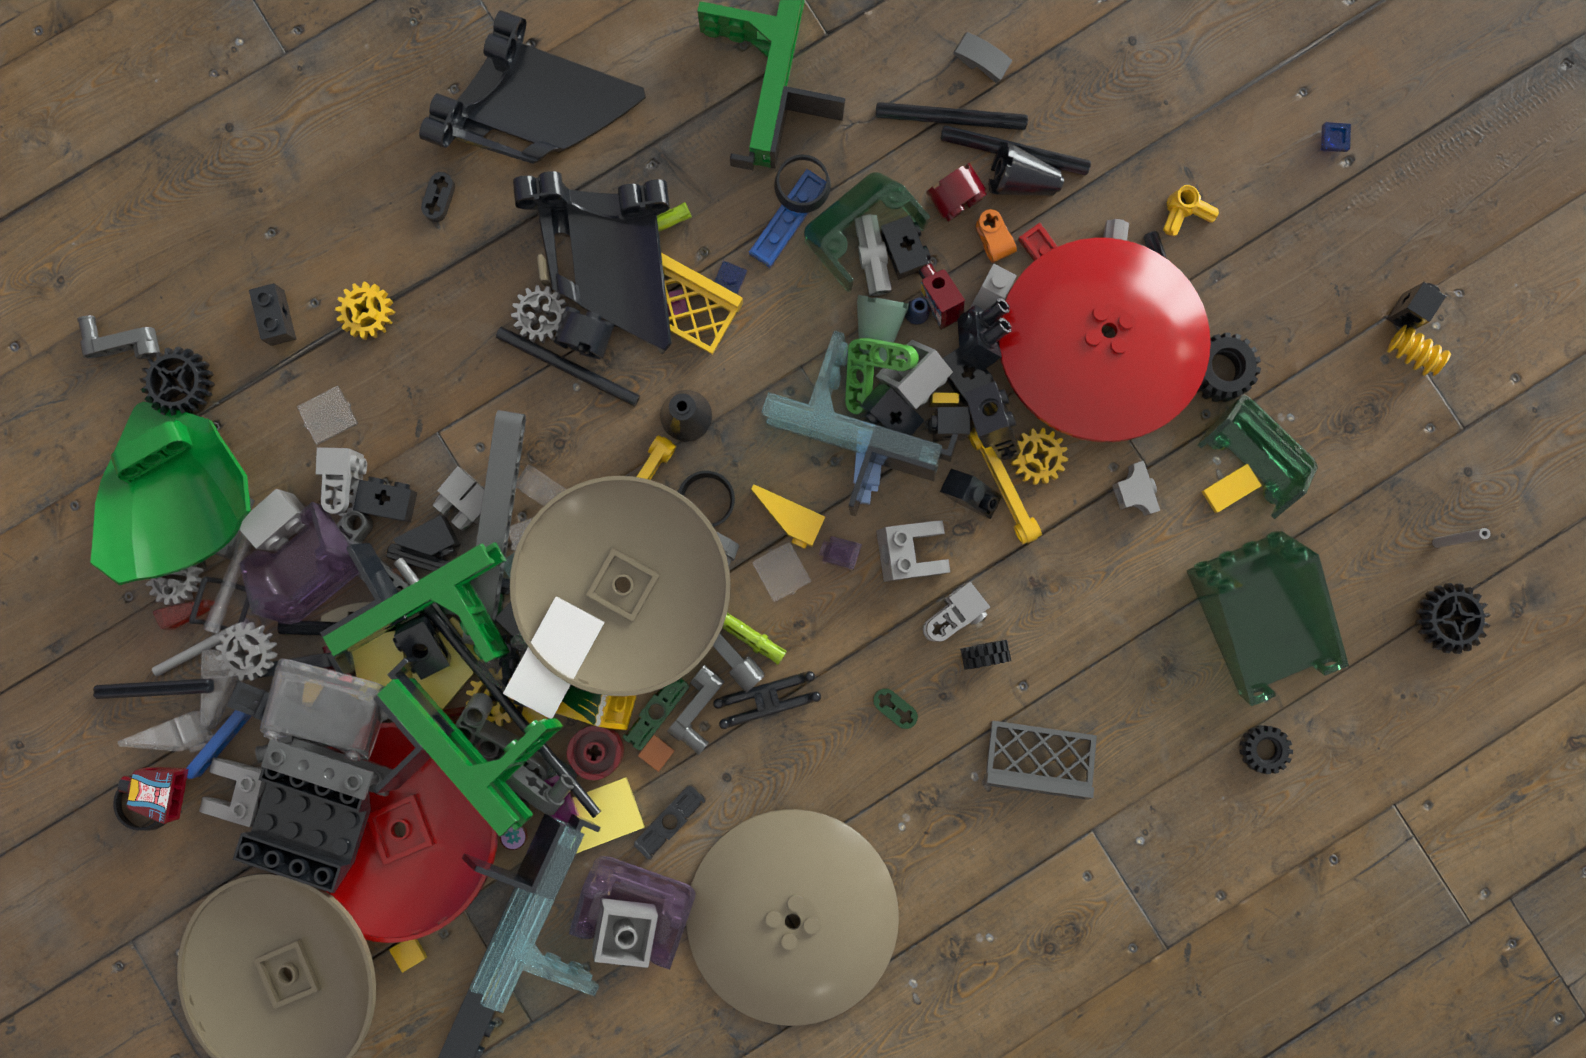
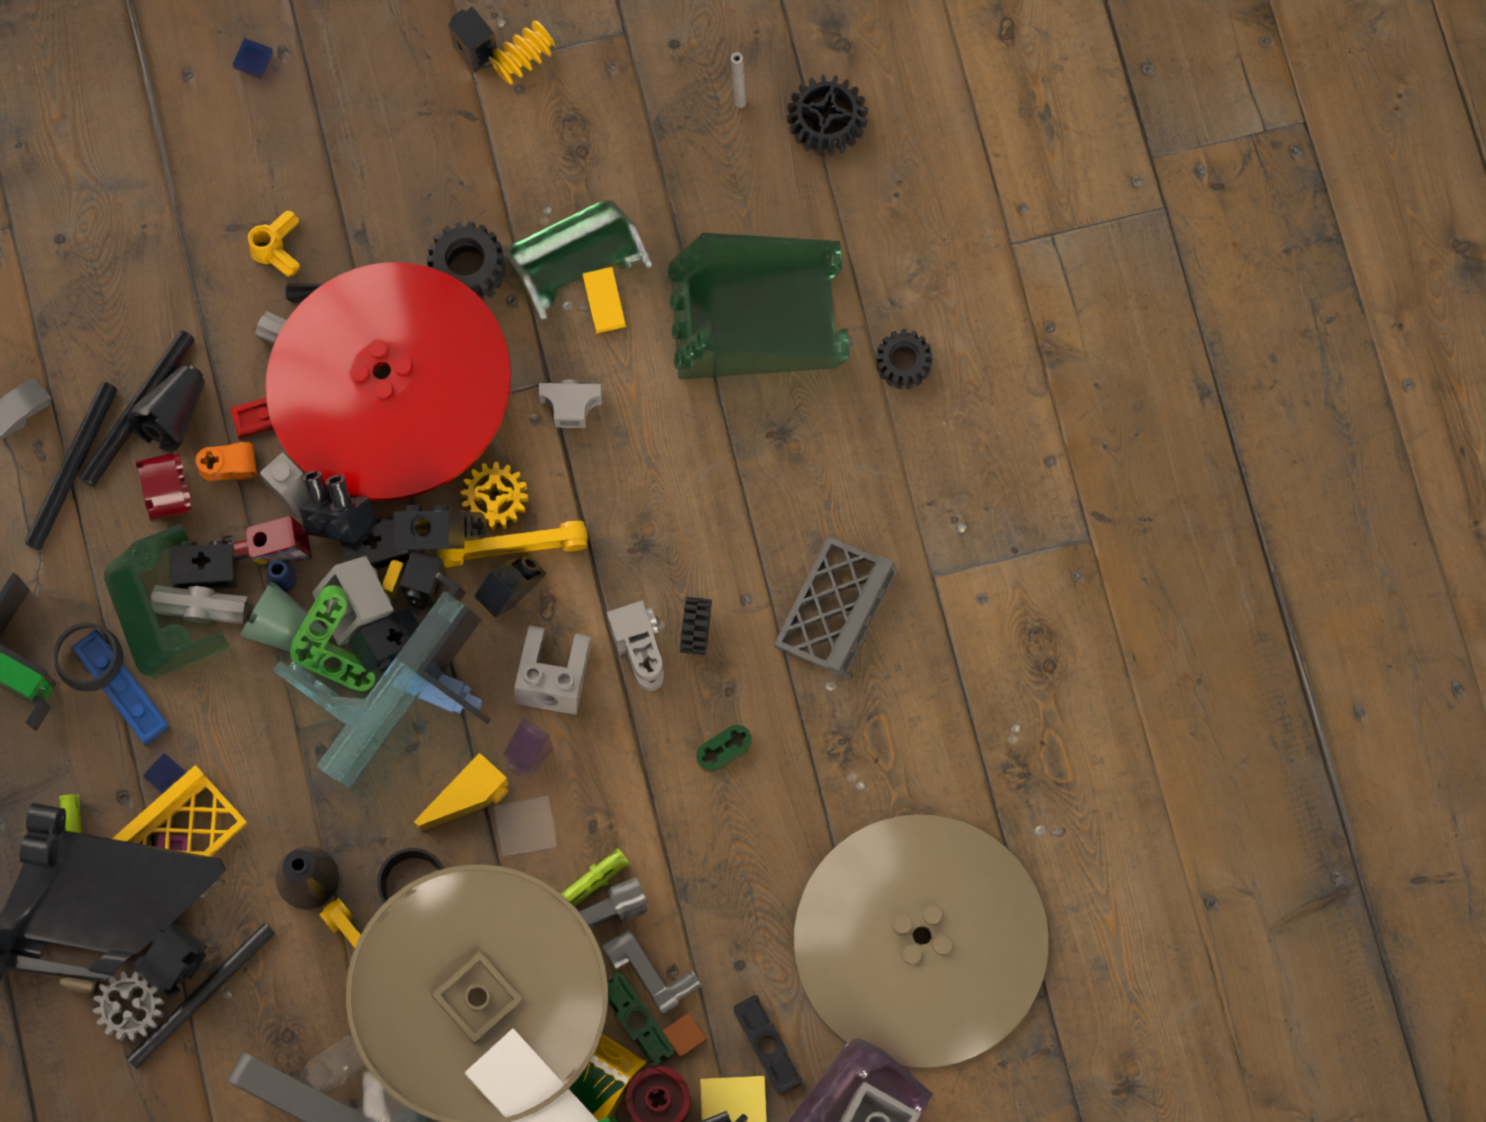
camera: 65 degrees left, 10 degrees down
(767, 699) = (665, 886): black piece -> none

